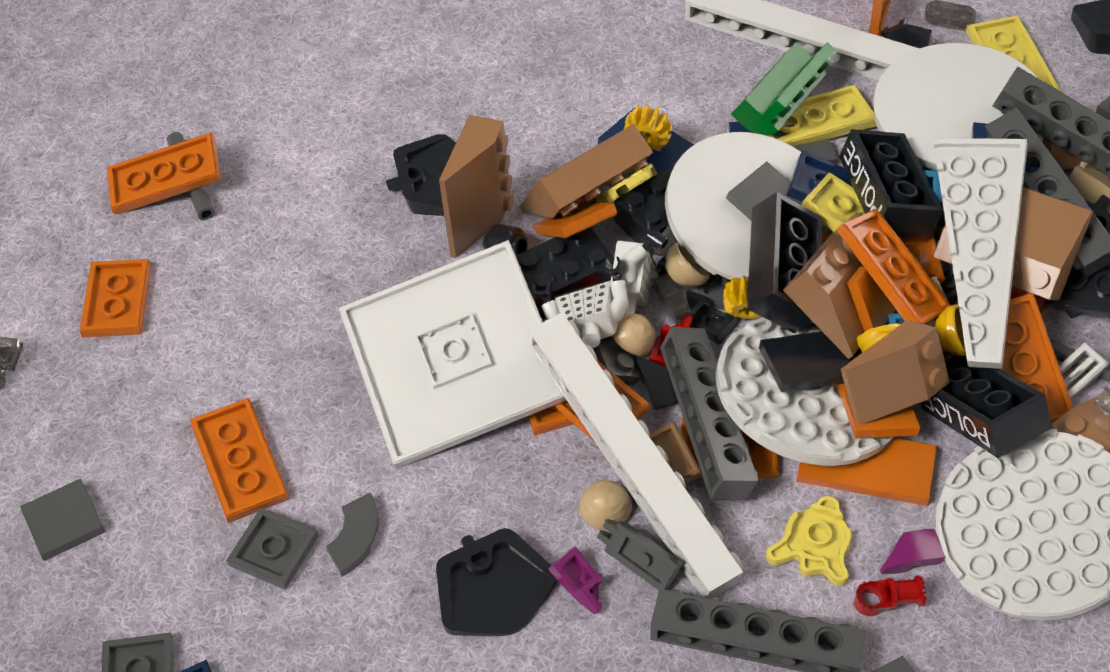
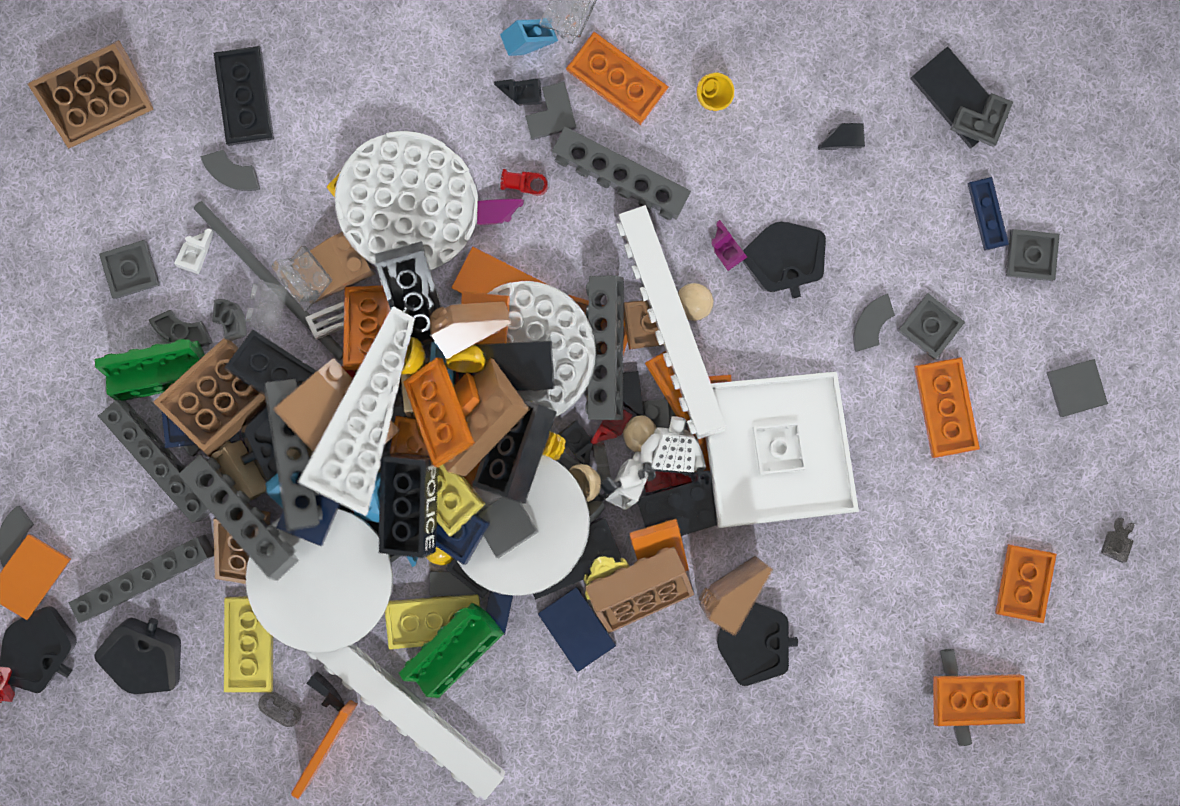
camera: 170 degrees left, 35 degrees up
(501, 233) = (715, 551): black head -> none
(640, 554) = (682, 254): dark grey hinge -> none
(652, 125) = (577, 631): yellow gear -> none
(816, 540) = (557, 237): light yellow tile -> none

